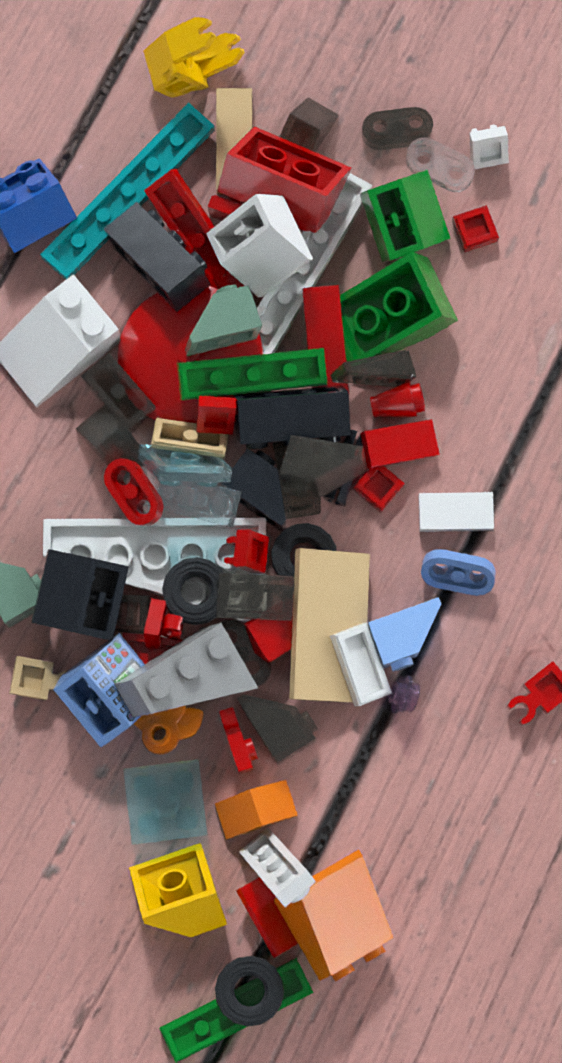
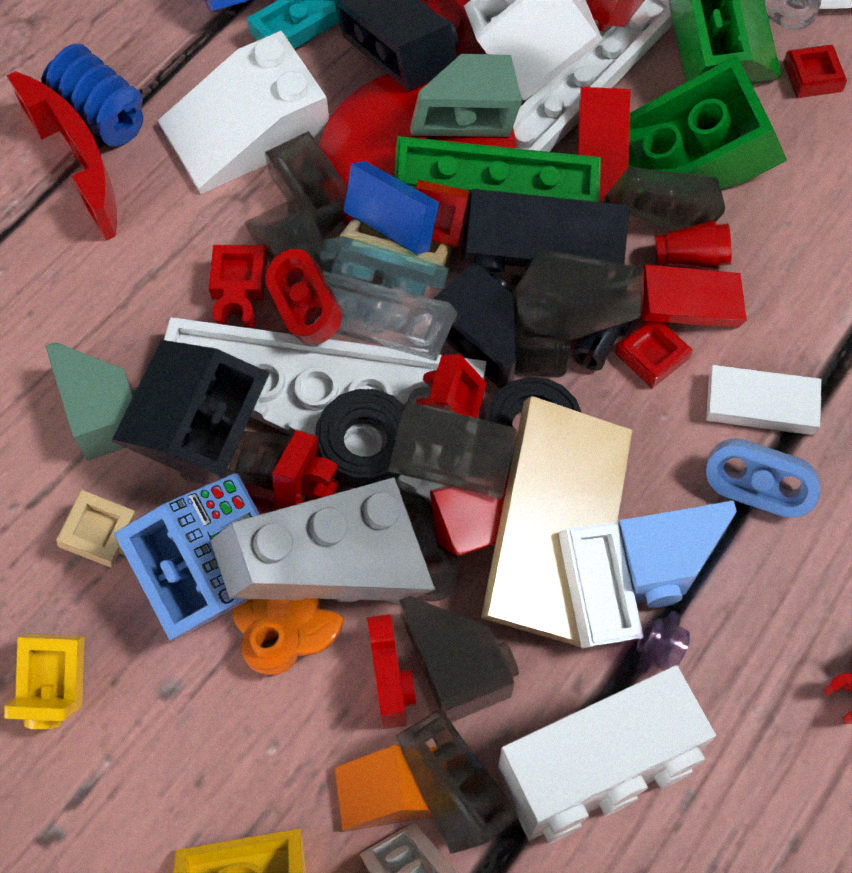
camera: 10 degrees right, 15 degrees down
(27, 781) = (47, 679): none -> yellow bracket
(82, 477) = (236, 278): none -> red plate
(165, 802) = (255, 751): clear light blue plate -> none
(182, 418) = (391, 207): none -> blue tile
(296, 813) = (464, 800): none -> clear smoke slope
(375, 774) = (604, 755): none -> white brick

